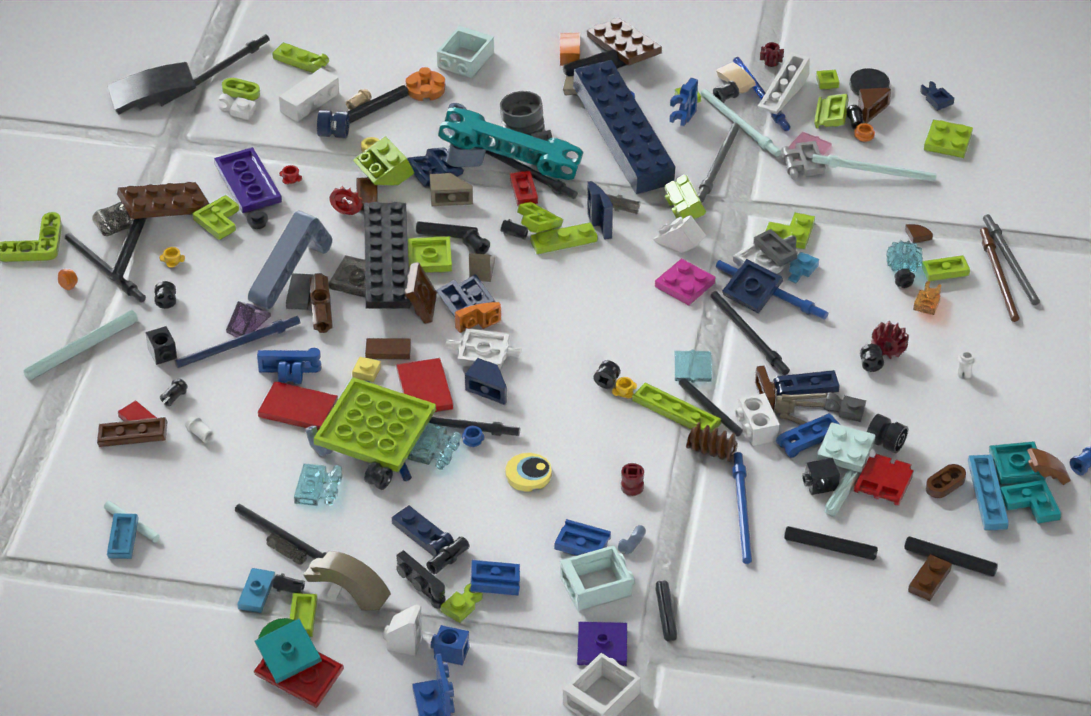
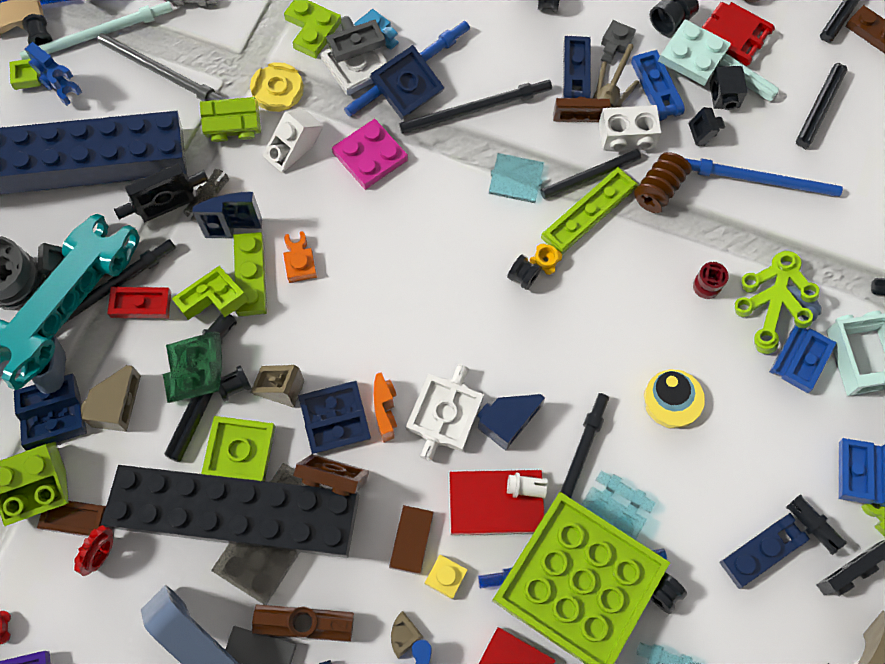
camera: 80 degrees left, 25 degrees up
(328, 355) = (403, 635): none -> dark tan tile
(436, 387) = (526, 486): none -> white pin
(472, 436) = (612, 455): blue plate -> none
(474, 221) = (193, 367): none -> clear green slope
(582, 261) = (299, 261): none -> orange plate
(605, 172) = (160, 193): none -> black plate
(628, 520) = (777, 295): none -> lime plant
(727, 223) = (277, 87): none -> light yellow tile
(777, 466) = (705, 126): none -> black tile

